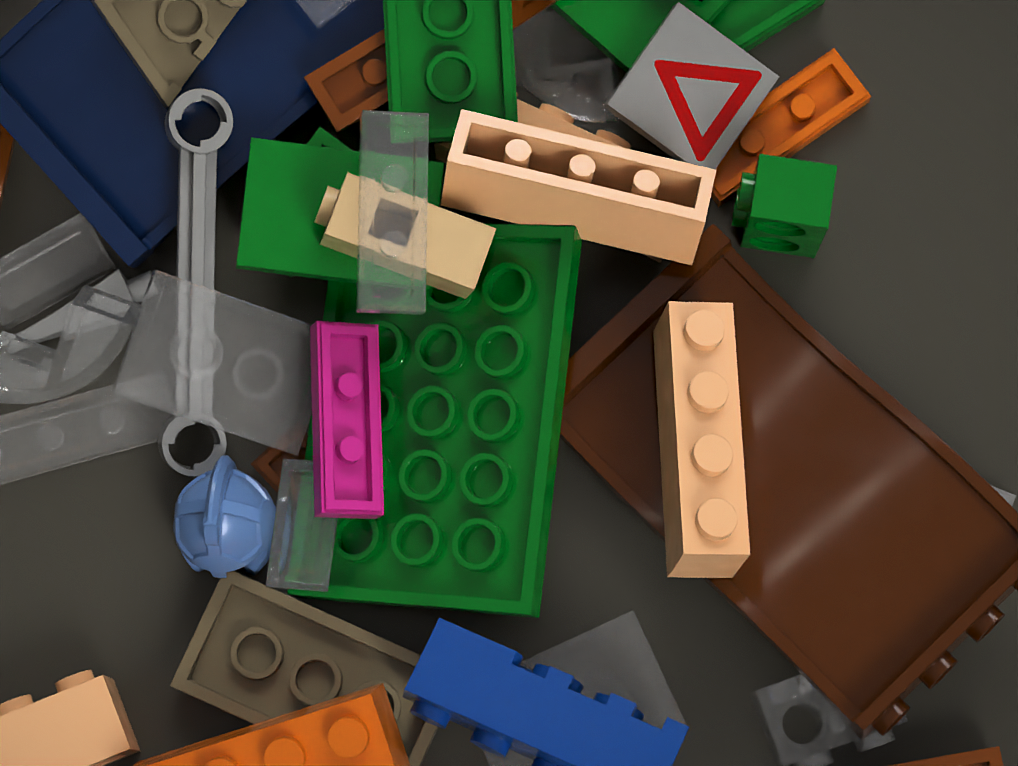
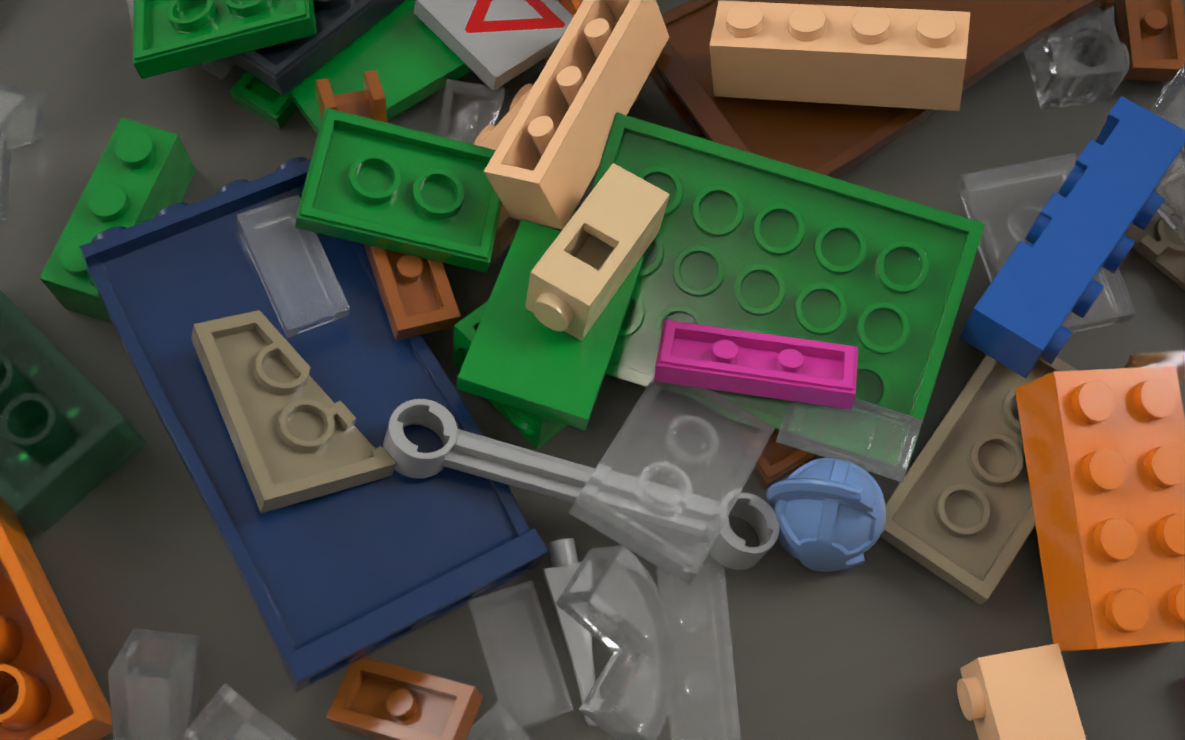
camera: 85 degrees left, 10 degrees down
(392, 212) = (583, 238): clear tile -> none

